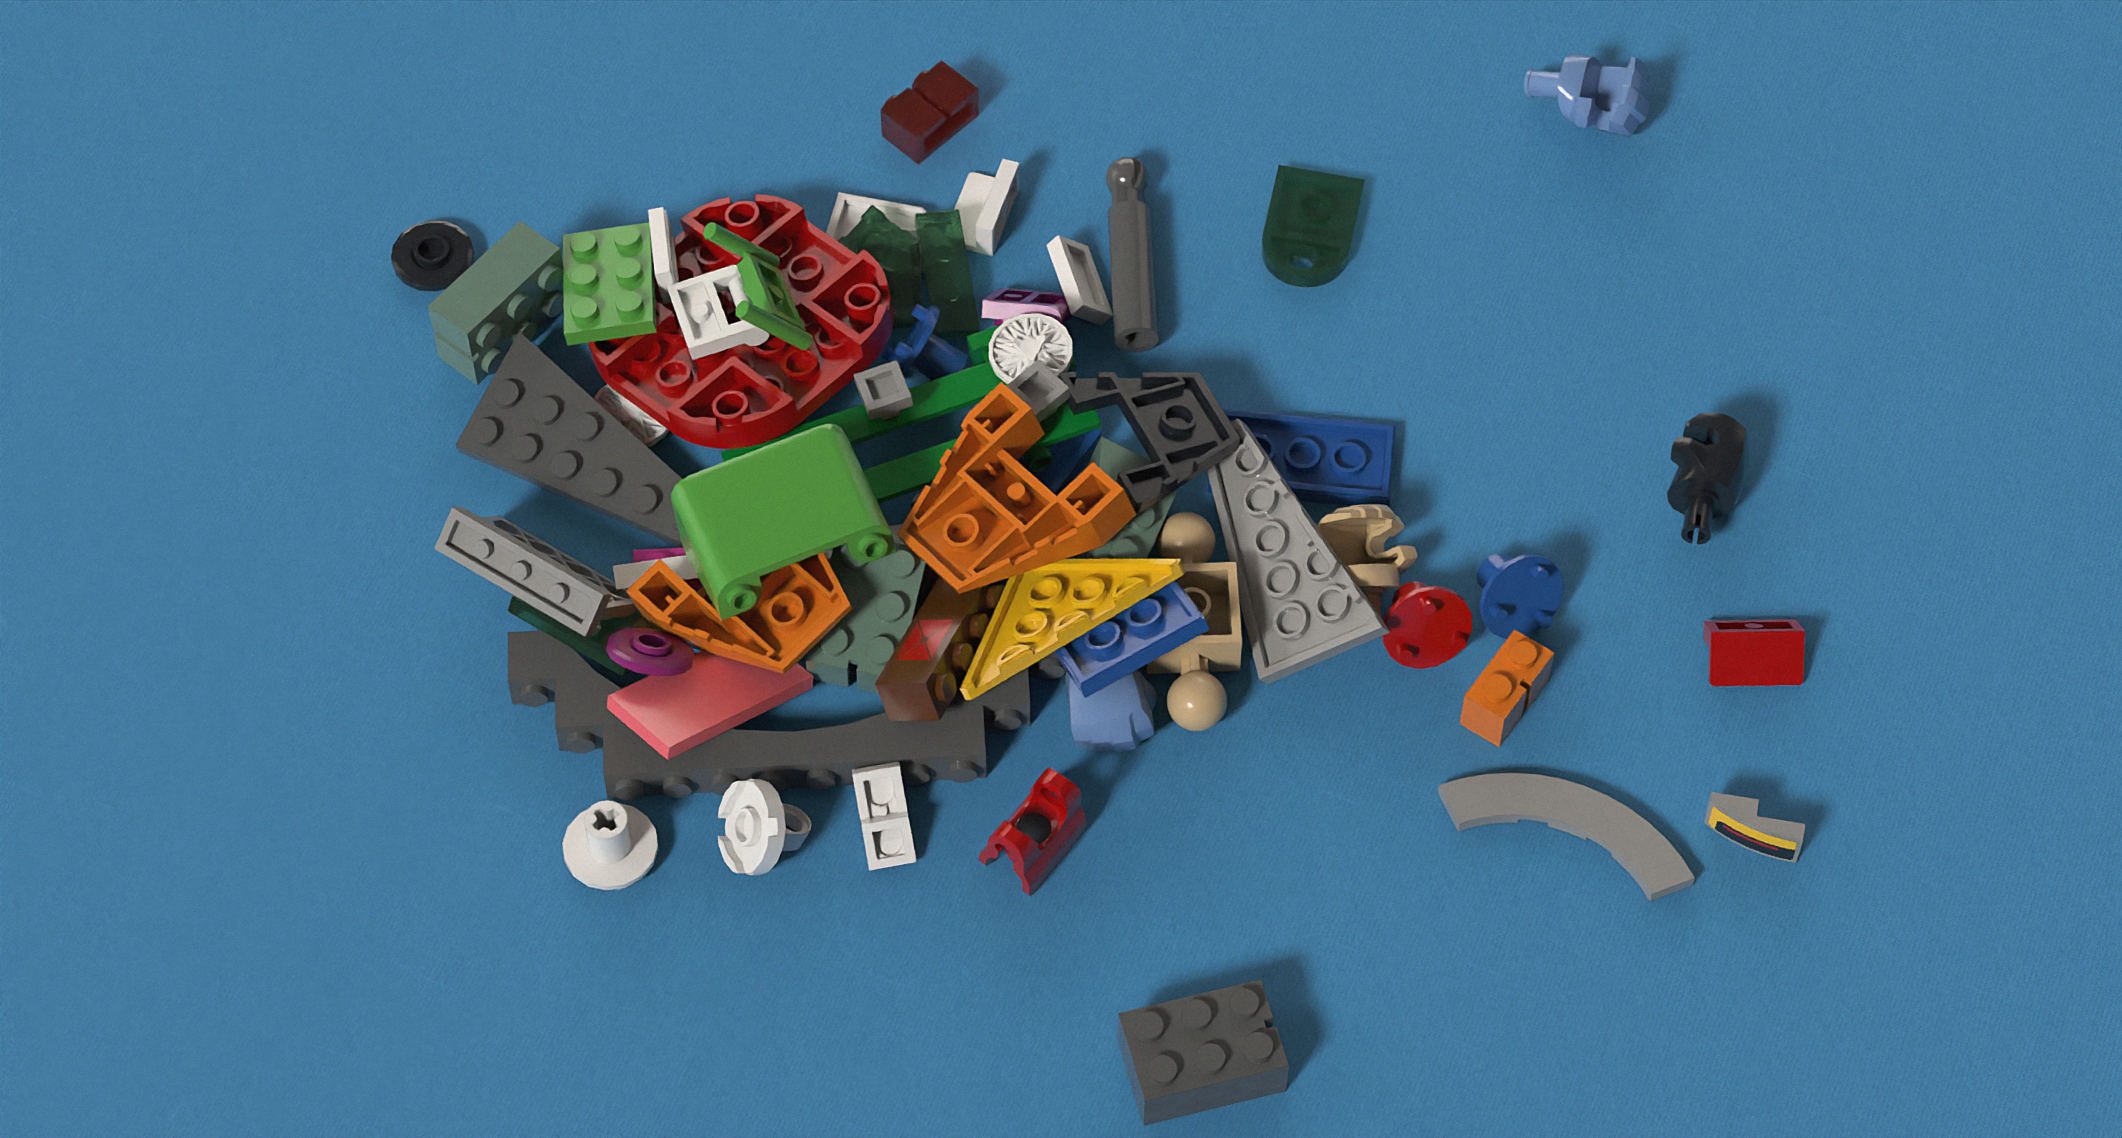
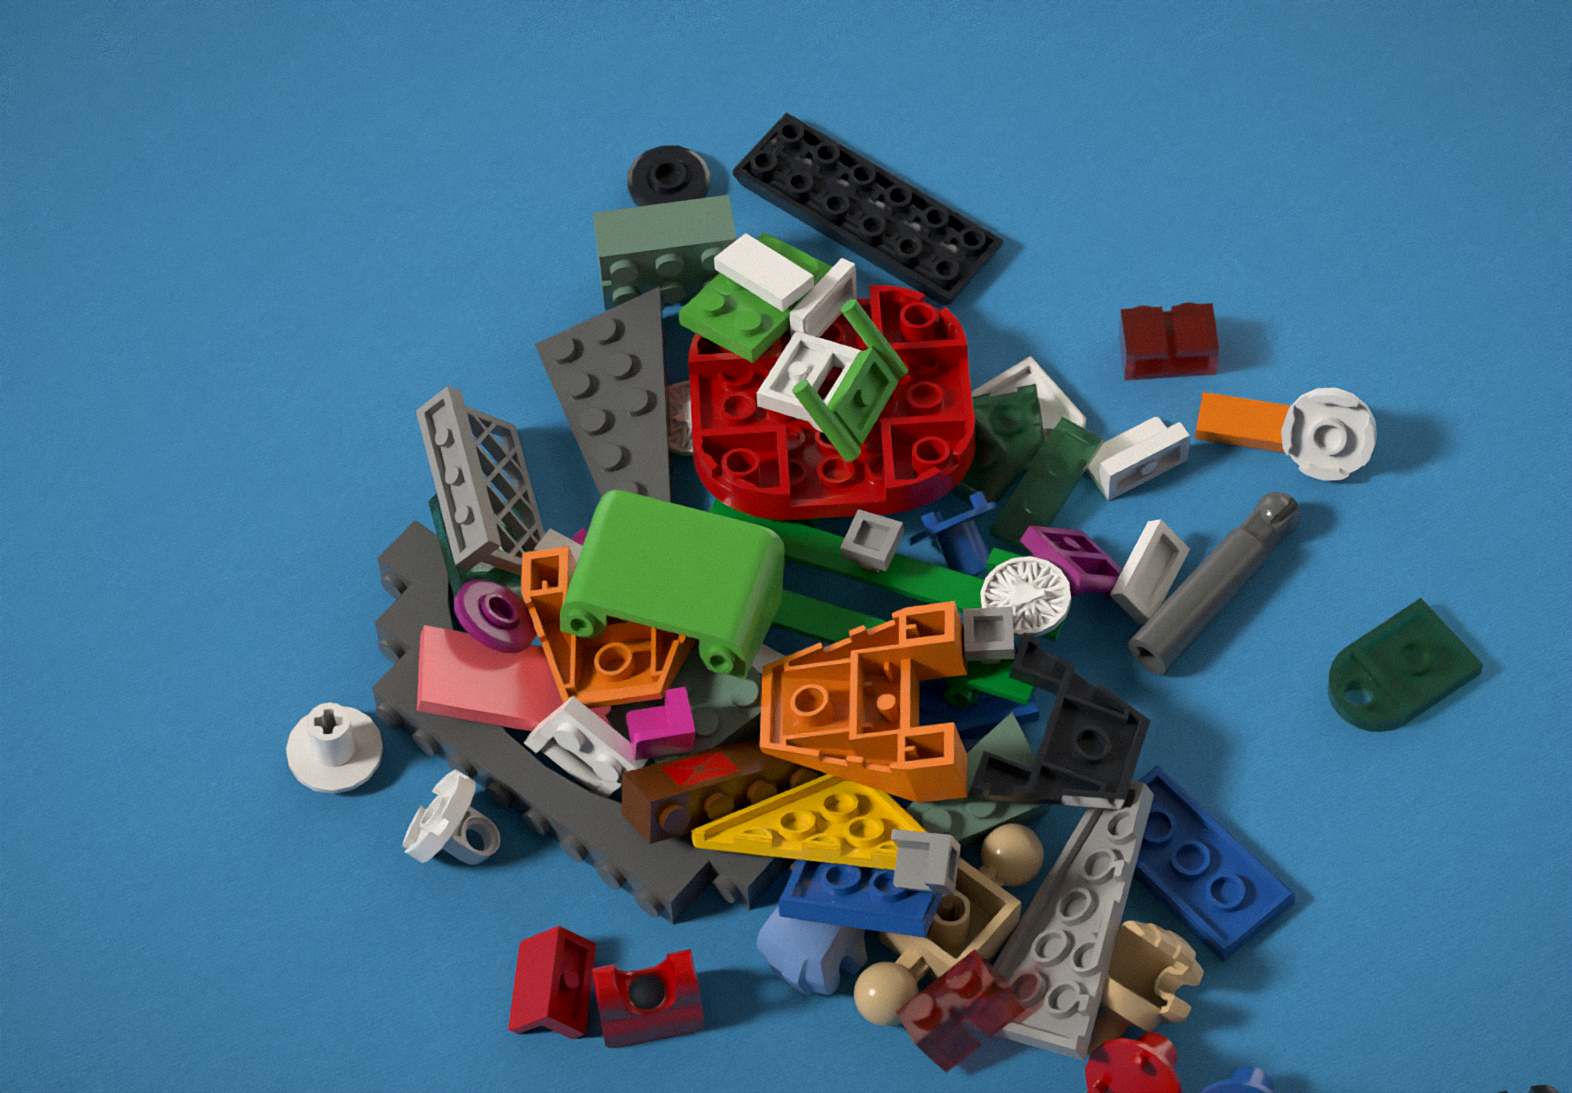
camera: 45 degrees right, 0 degrees up
(605, 258) = (764, 272): none -> white tile
(606, 173) = (866, 209): none -> black plate
(818, 683) = (584, 747): none -> white plate
(872, 629) = (662, 728): none -> dark pink panel
(884, 815) = (556, 887): white slope -> none
(946, 883) = (553, 983): none -> red panel
(1036, 131) = (1241, 422): none -> orange tile
(1113, 94) = (1329, 433): none -> white tile
(1166, 573) = (925, 861): none -> light grey panel
(1250, 684) = (965, 991): none -> clear red piece

